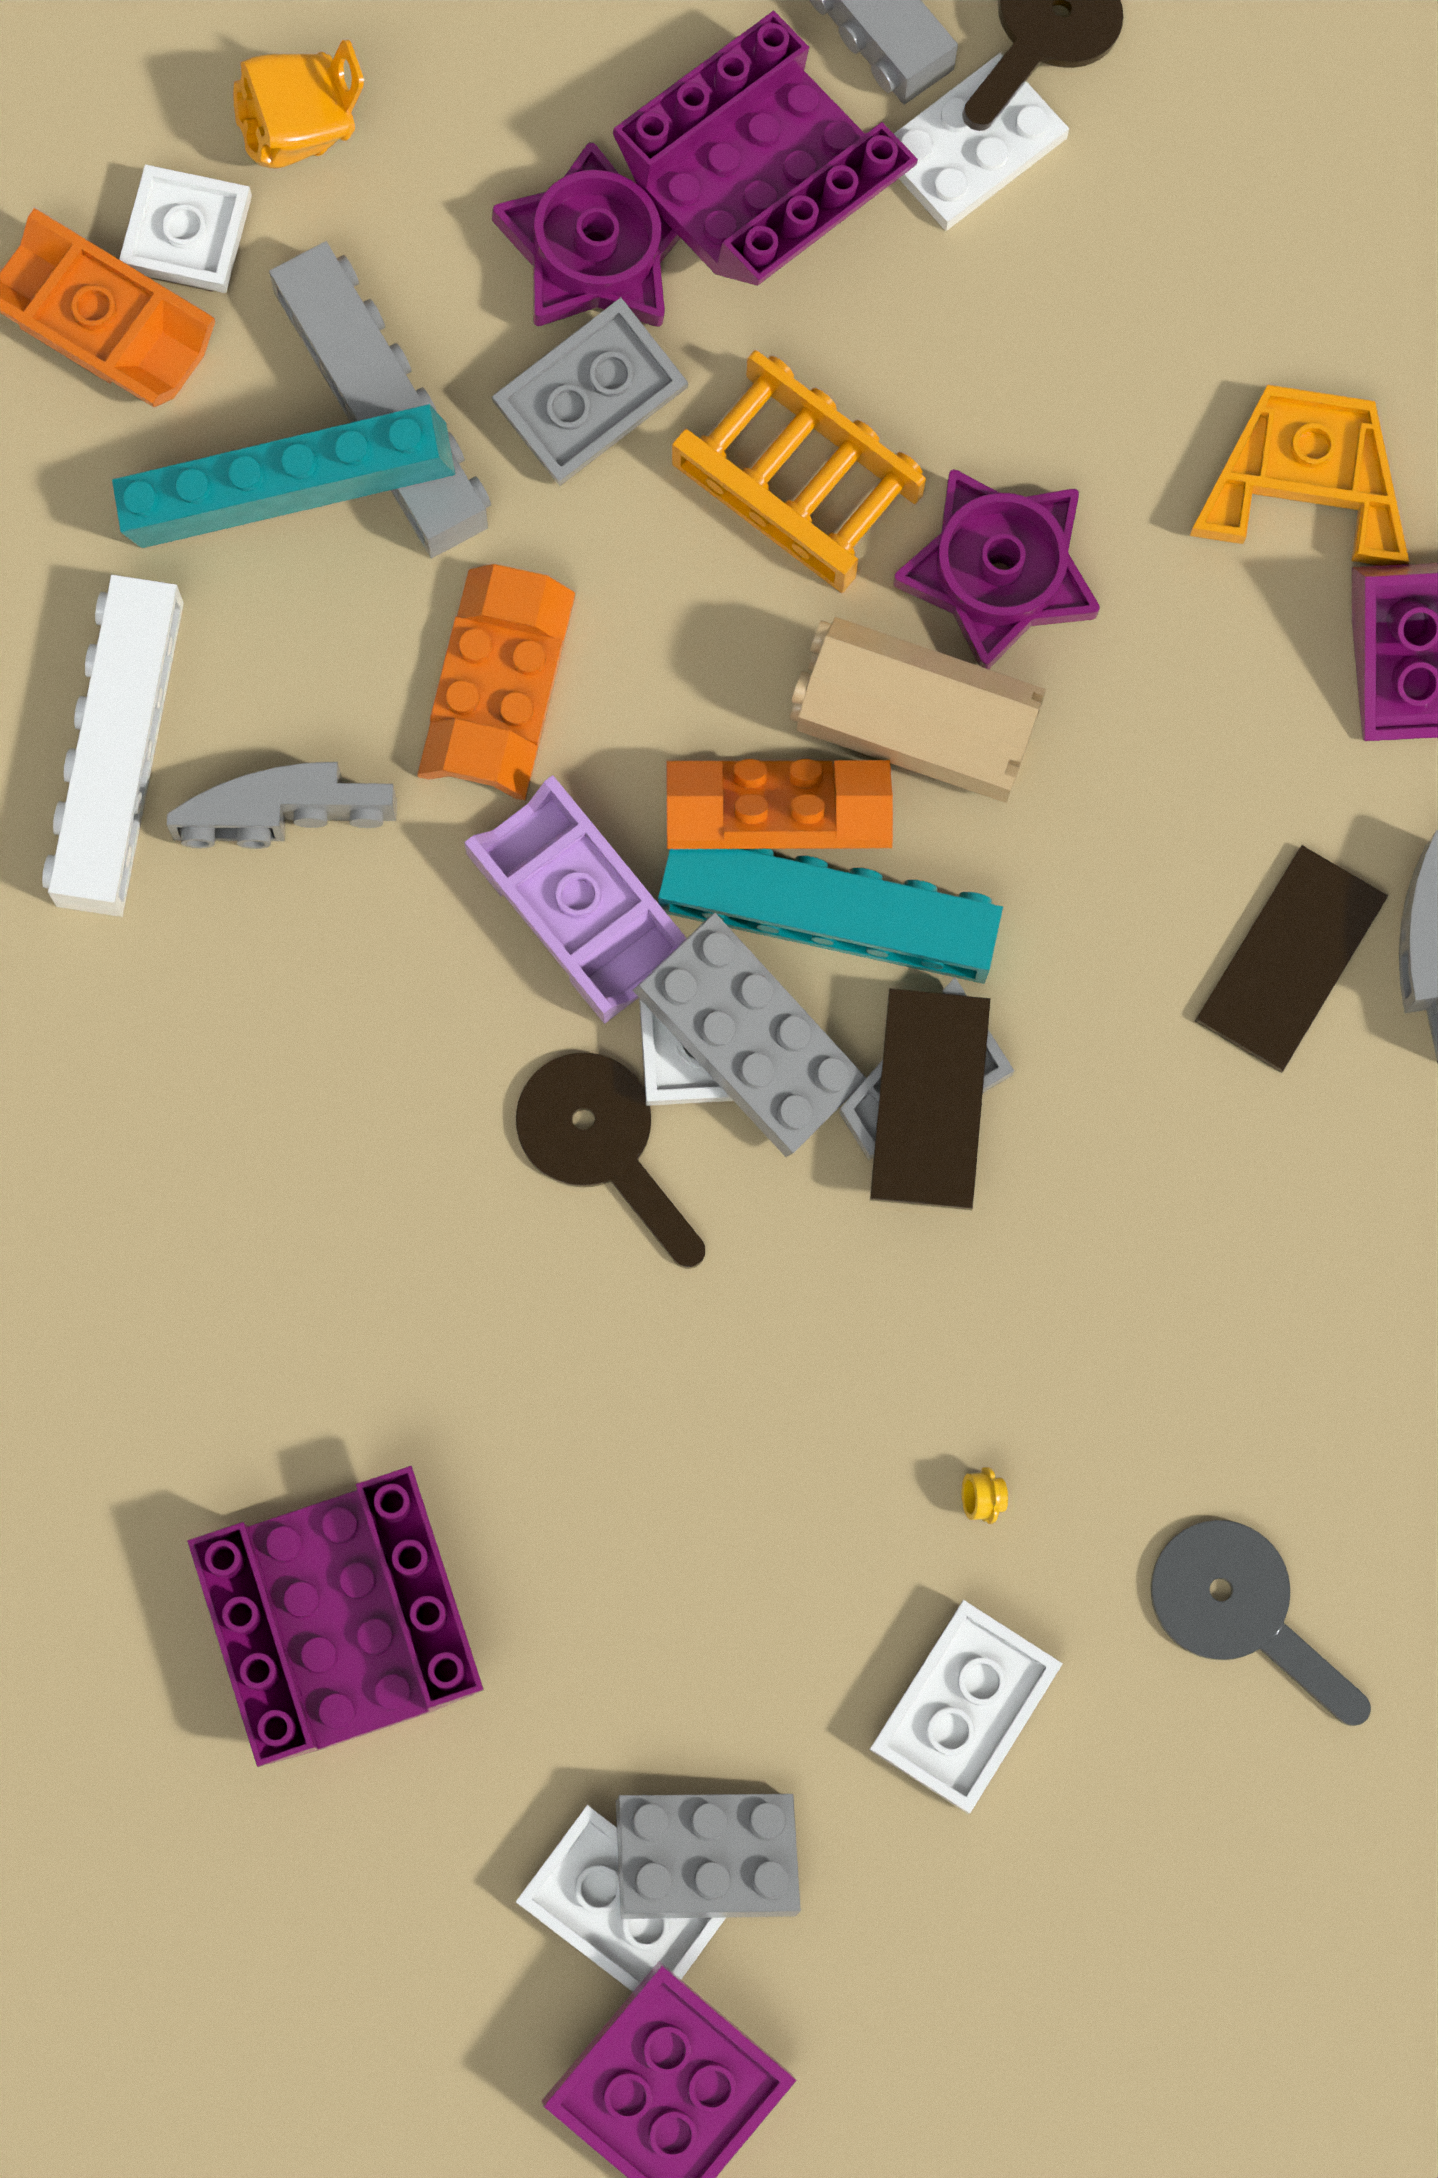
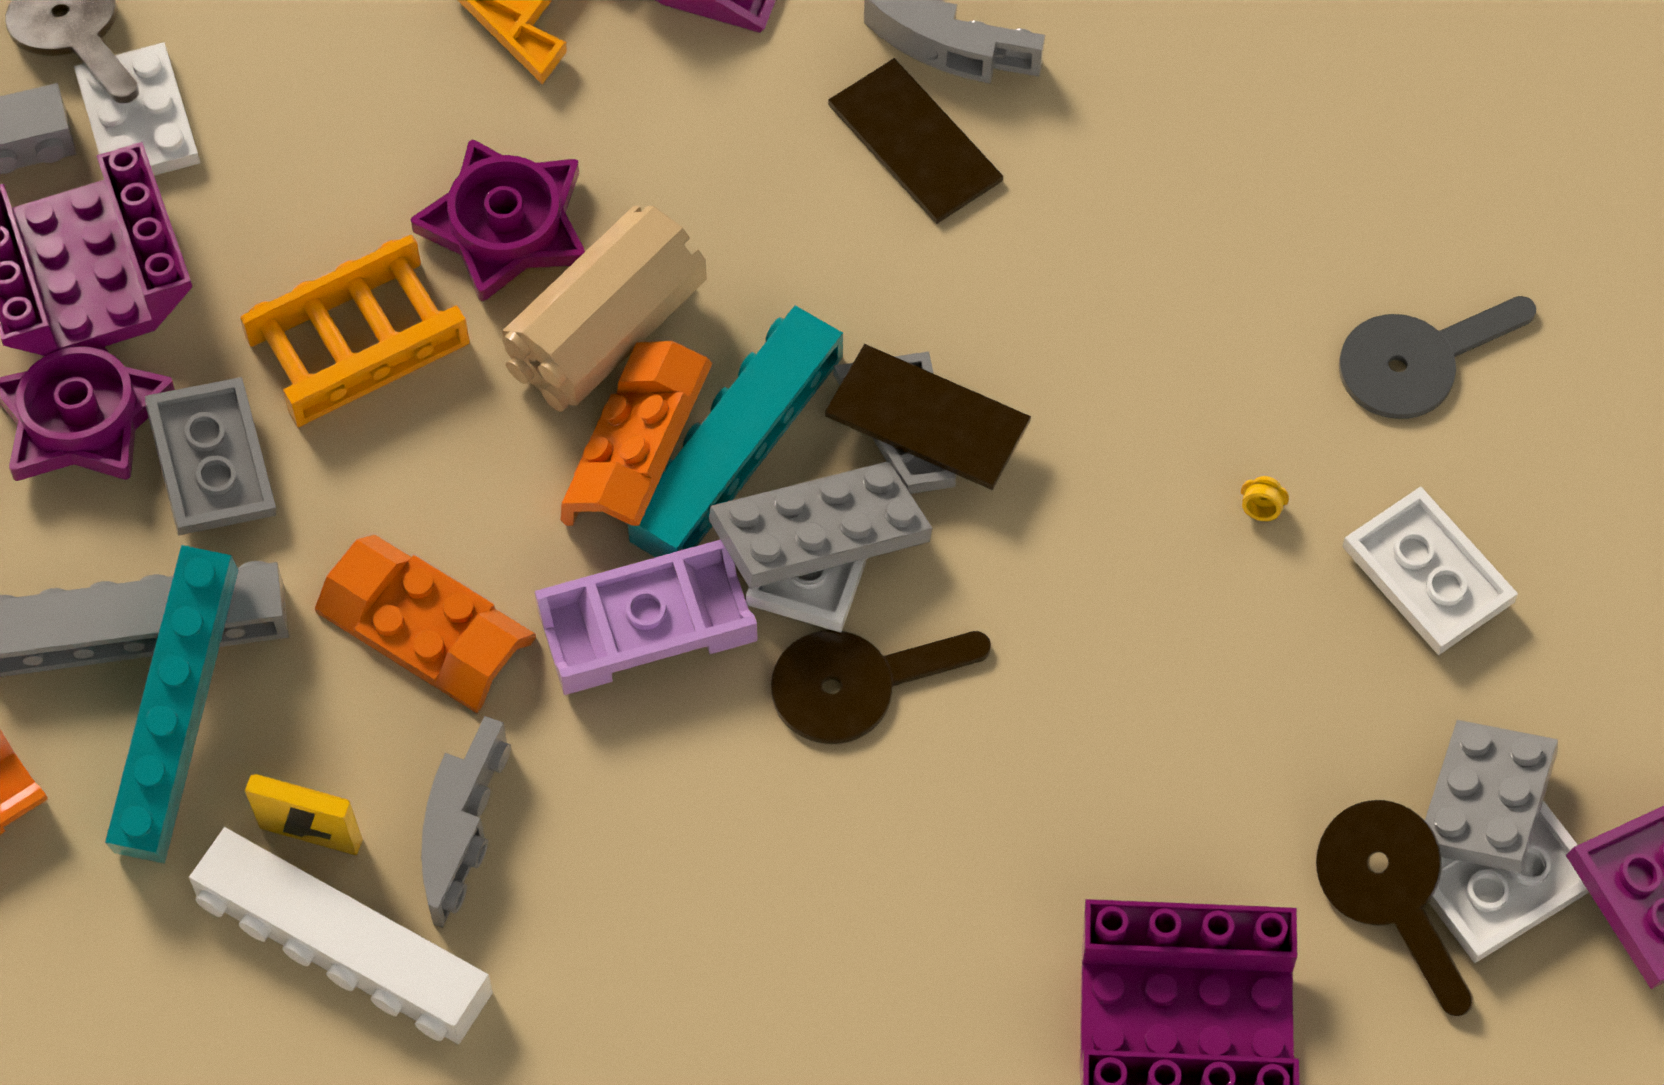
camera: 65 degrees left, 15 degrees down
(218, 654) = (304, 814): none -> yellow tile
(557, 1791) = (1397, 892): none -> dark brown piece

